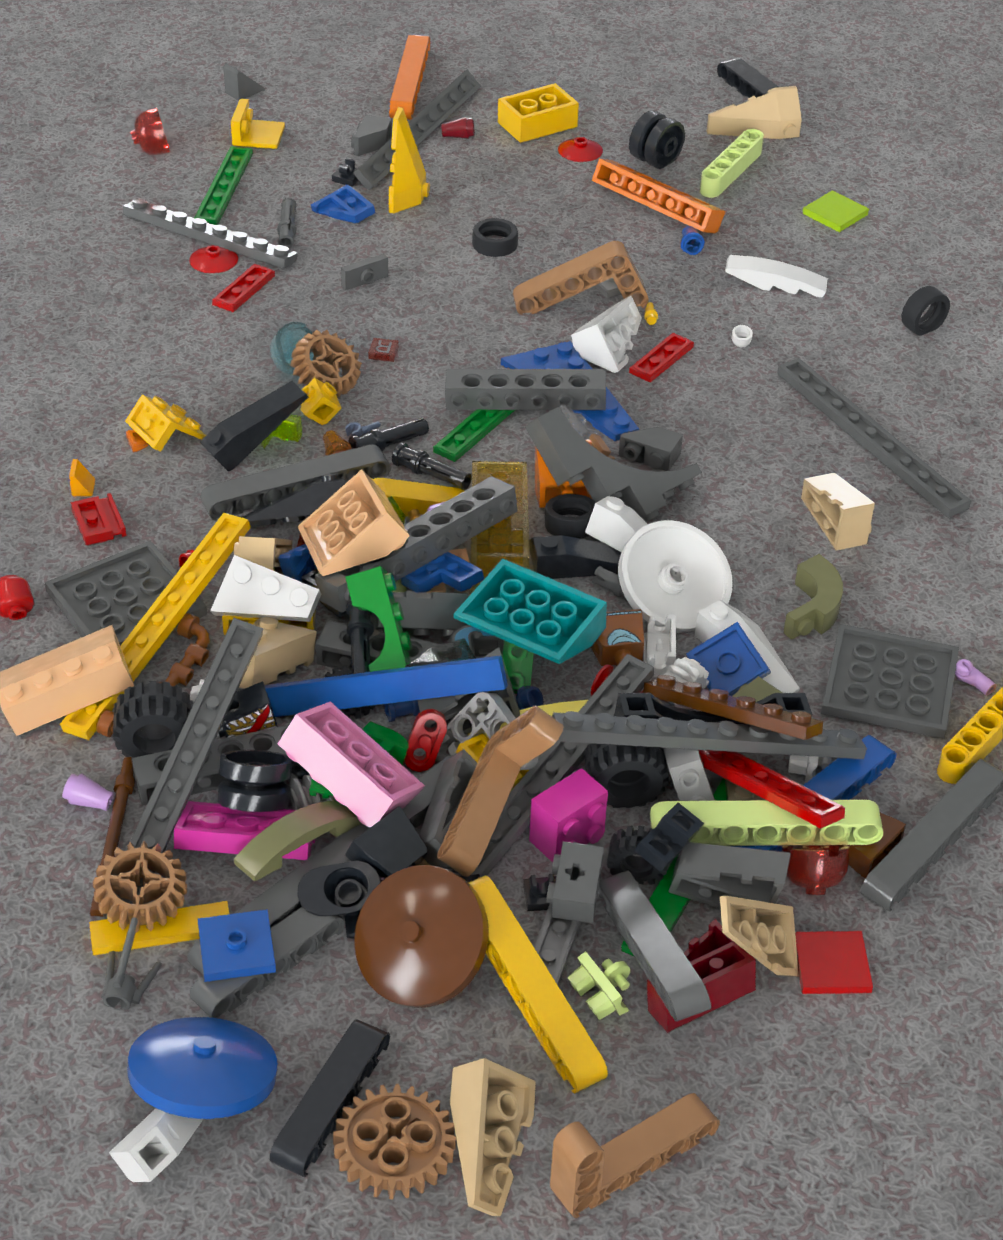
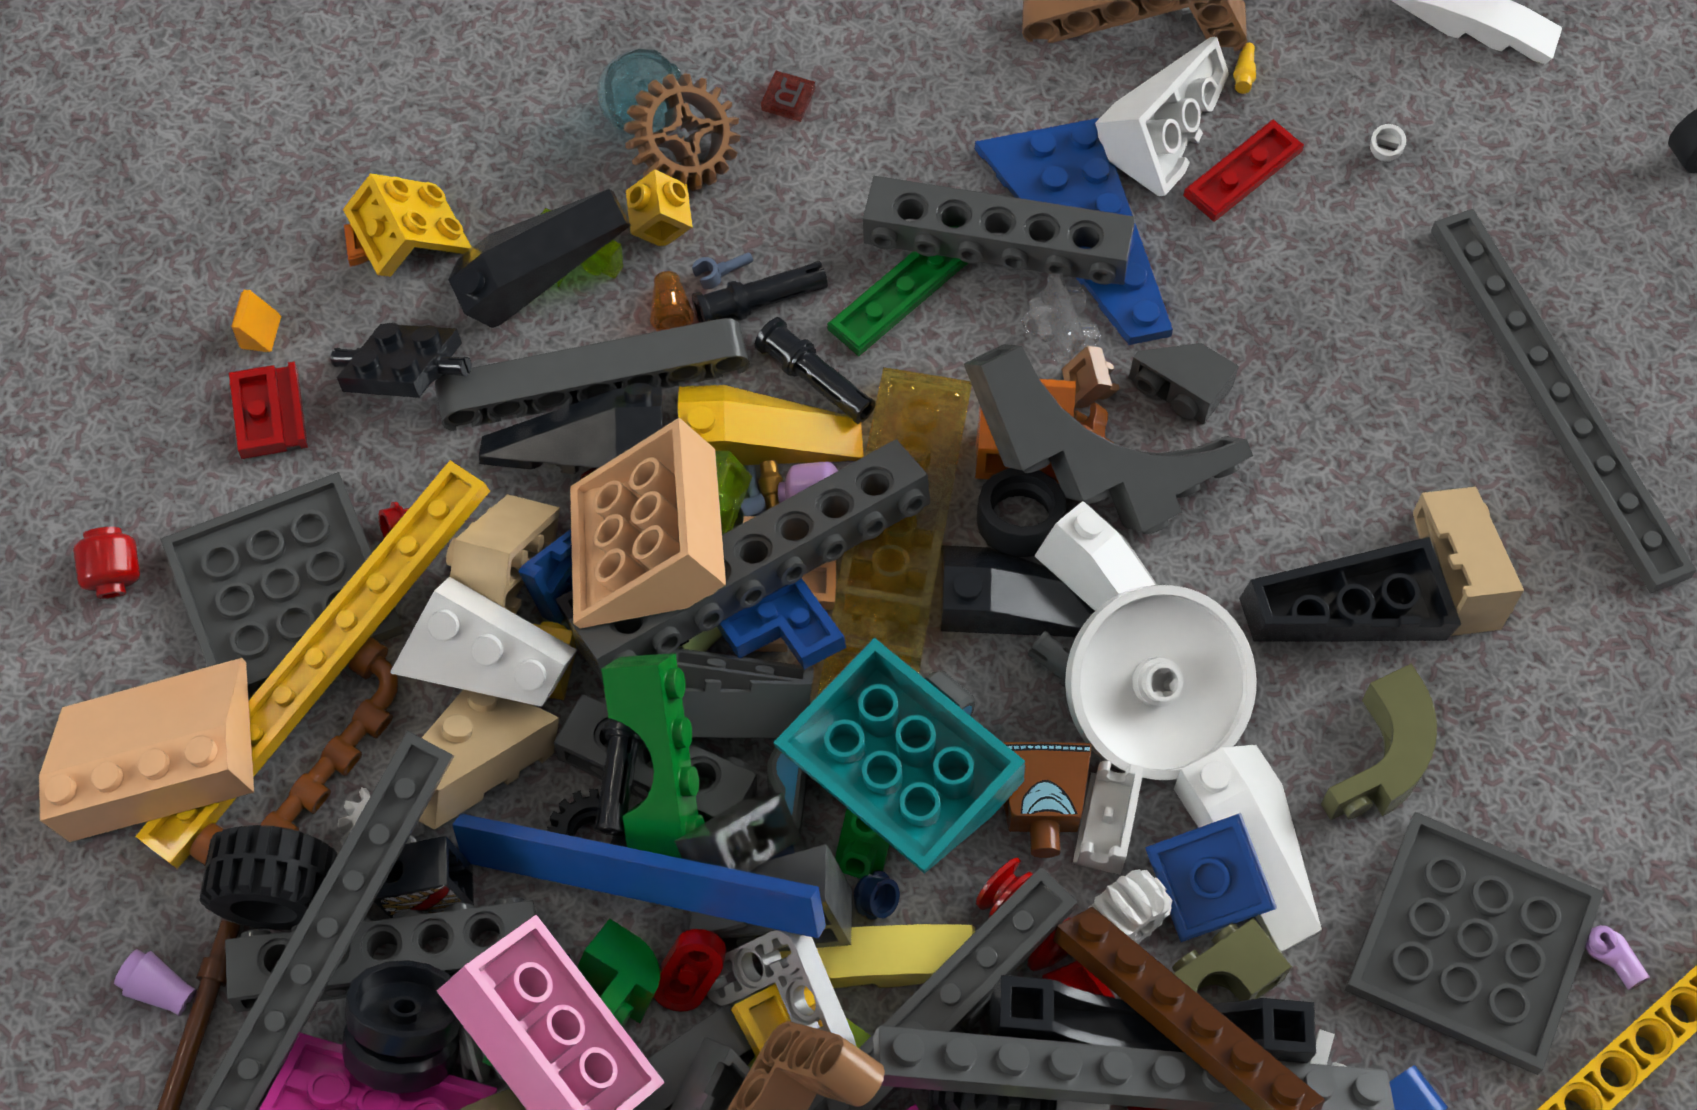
camera: 10 degrees right, 20 degrees up
(178, 483) = (400, 360): none -> black plate
(779, 531) = (1359, 597): none -> black wedge

